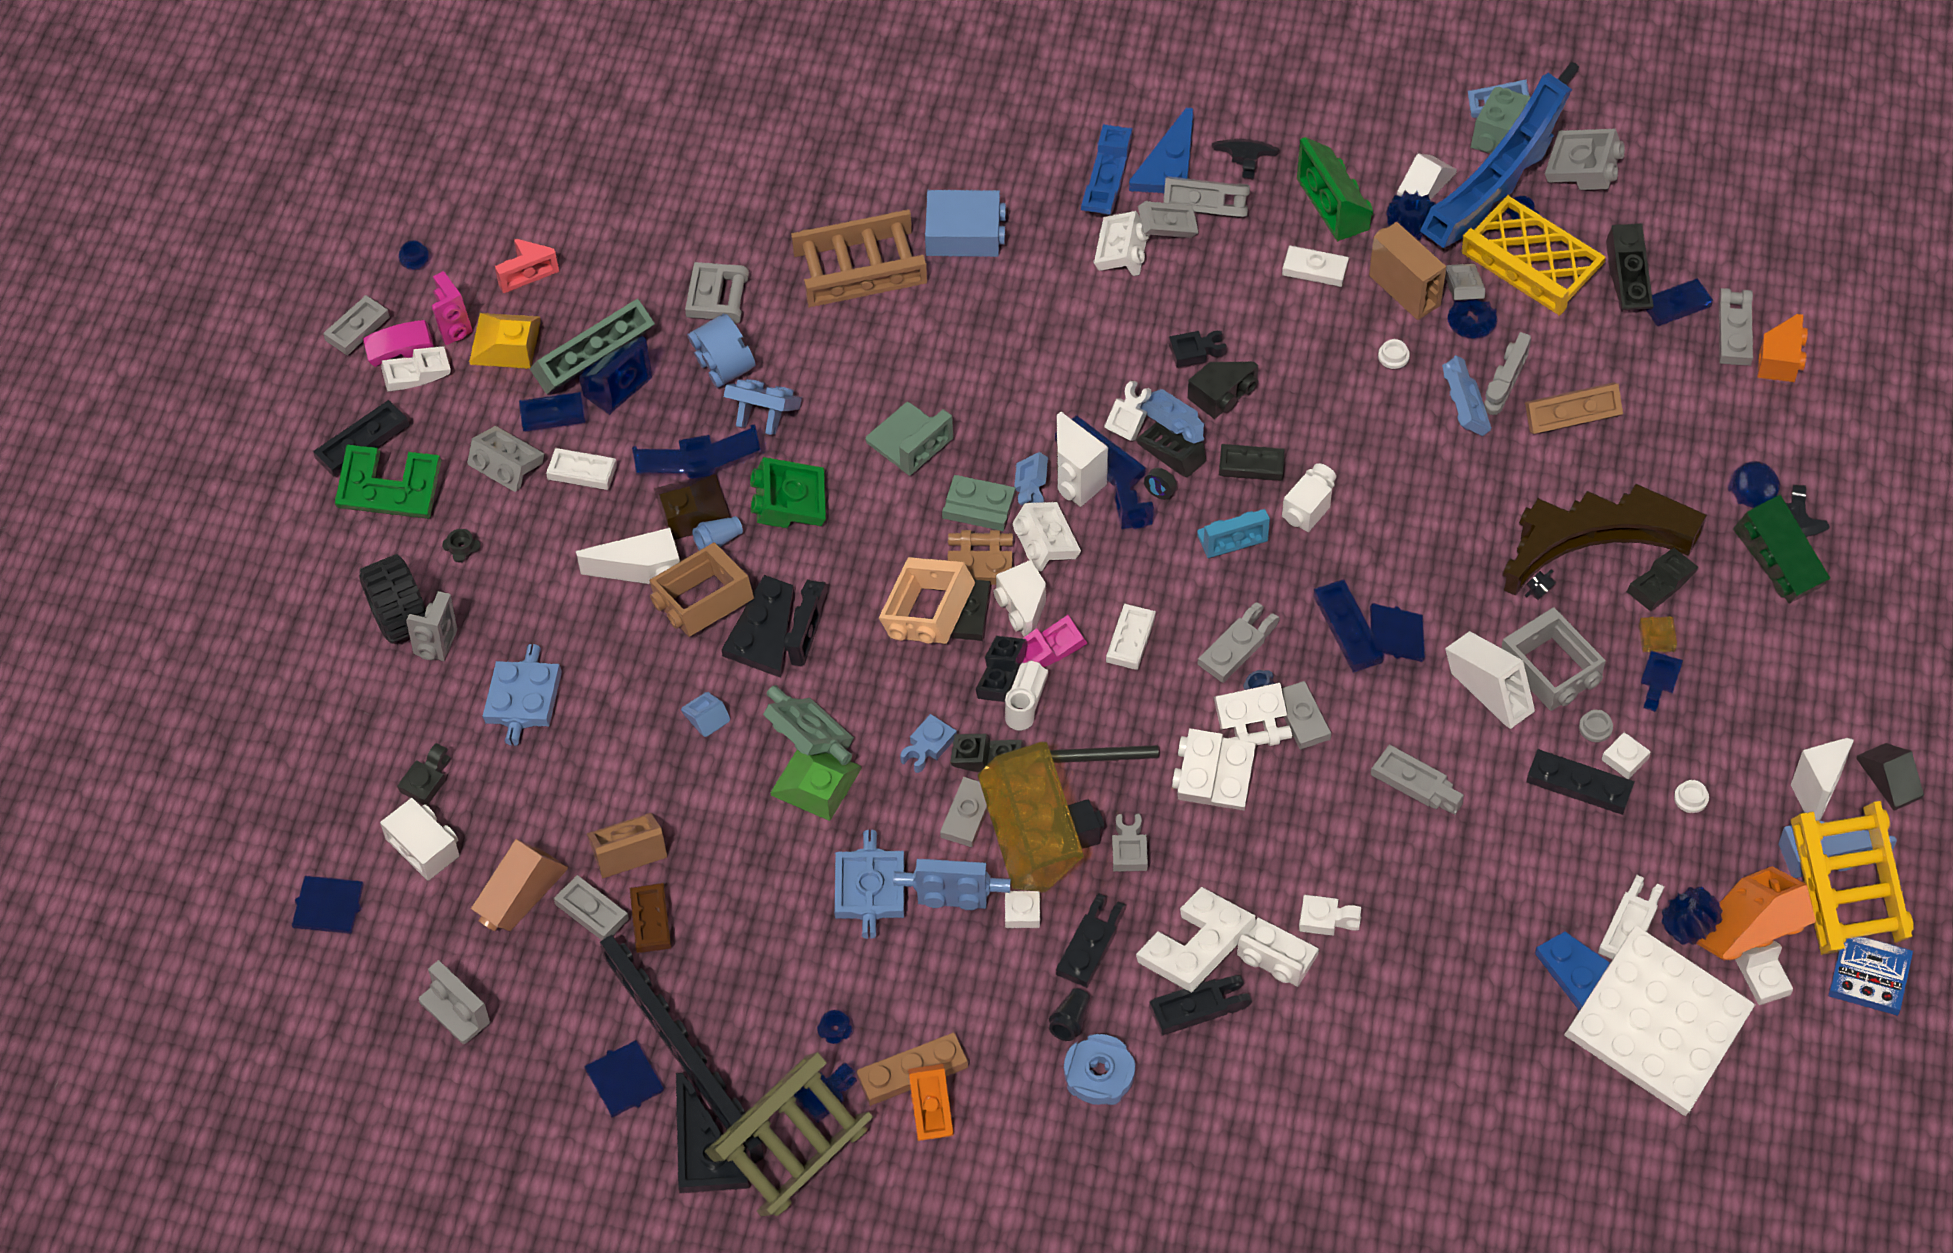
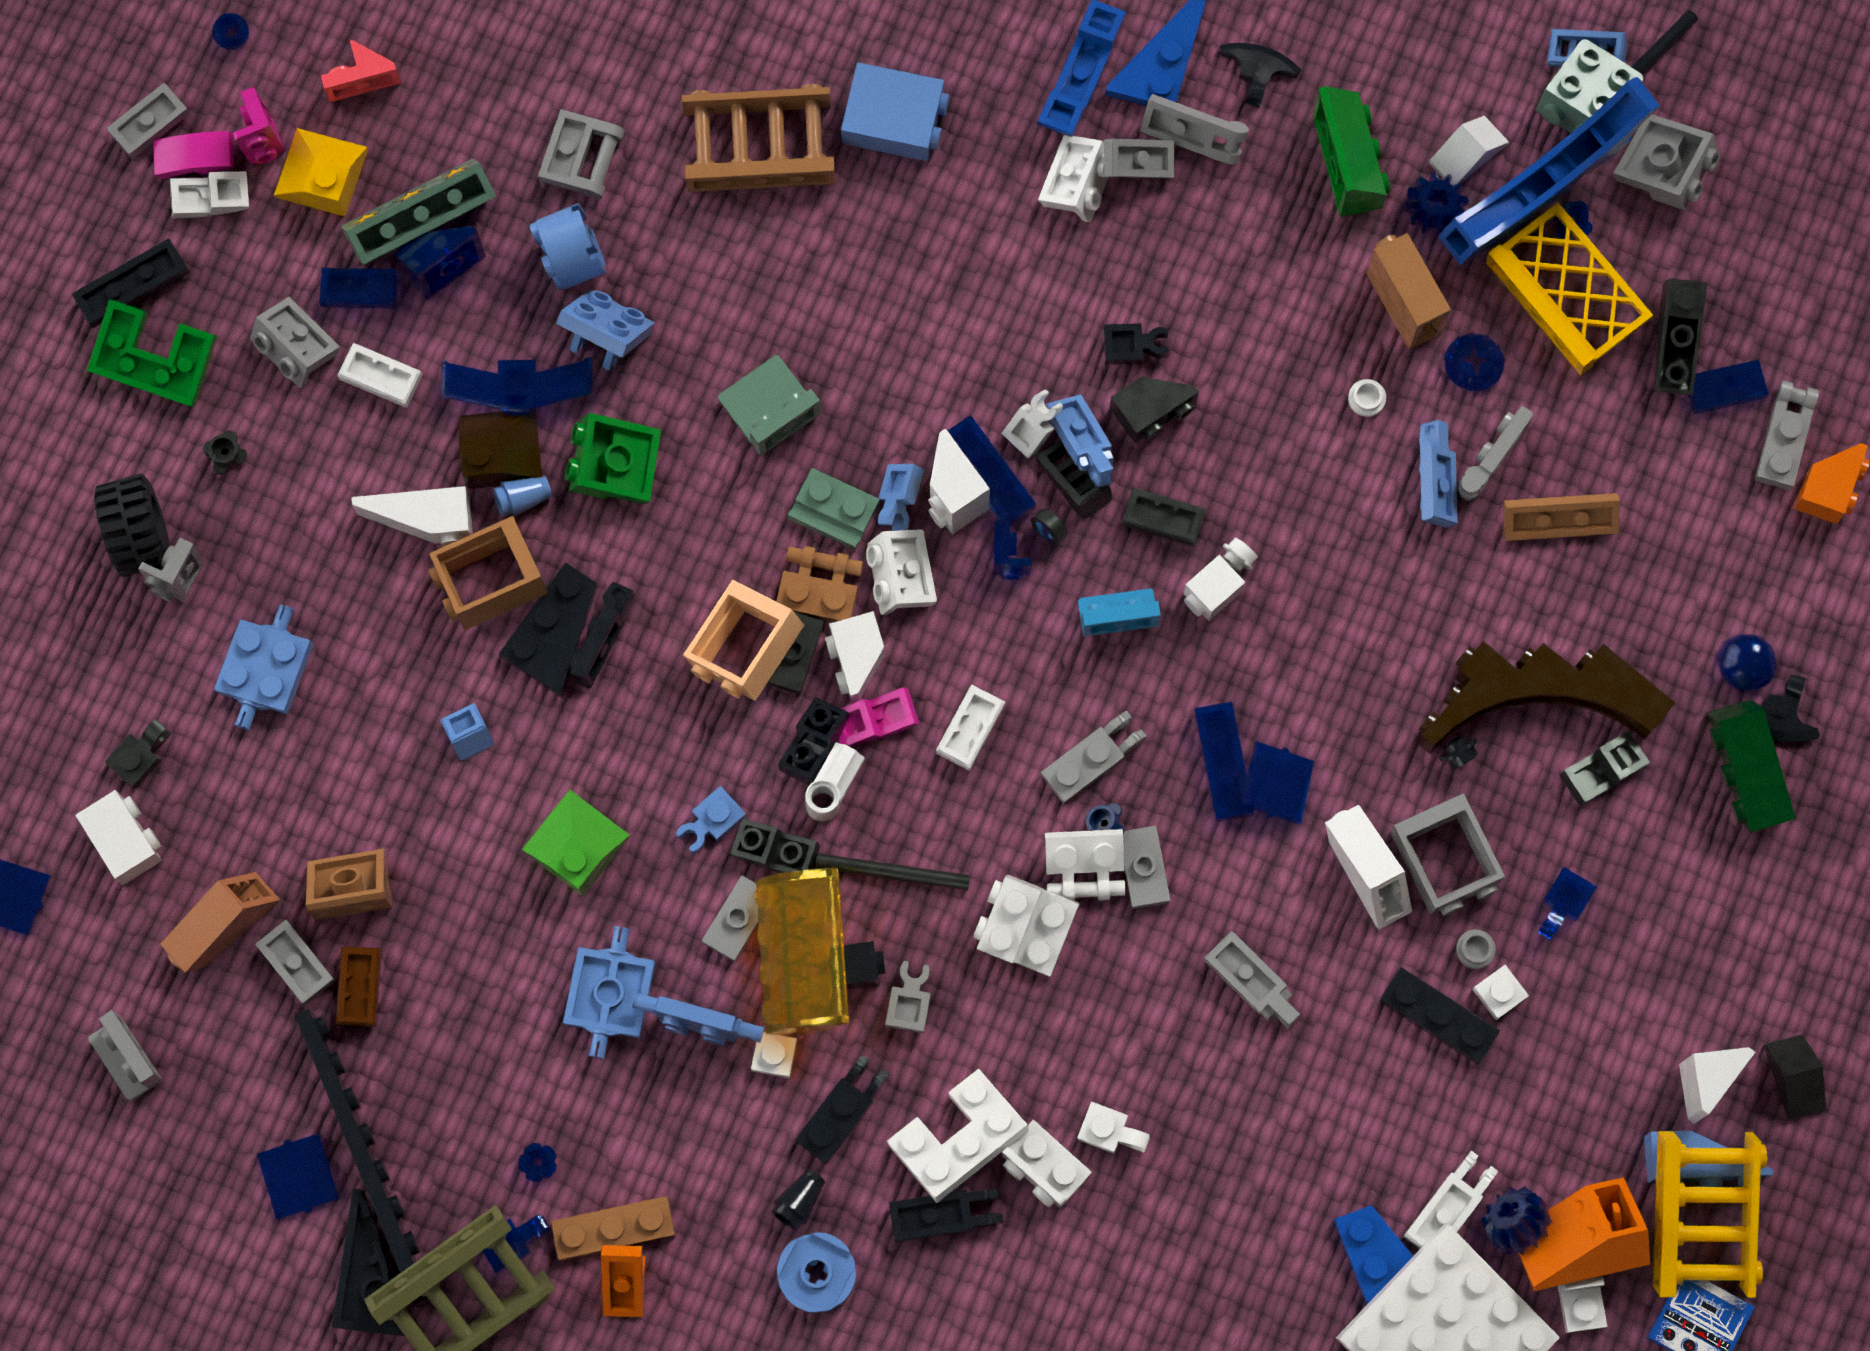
camera: 10 degrees right, 20 degrees up
(807, 726) = (576, 781): sand green plate -> none
(1315, 266) = (1304, 251): white plate -> none
(1464, 281) = (1475, 315): light grey plate -> none
(1657, 634) = (1579, 840): clear yellow tile -> none
(1691, 796) = (1560, 1061): white plate -> none

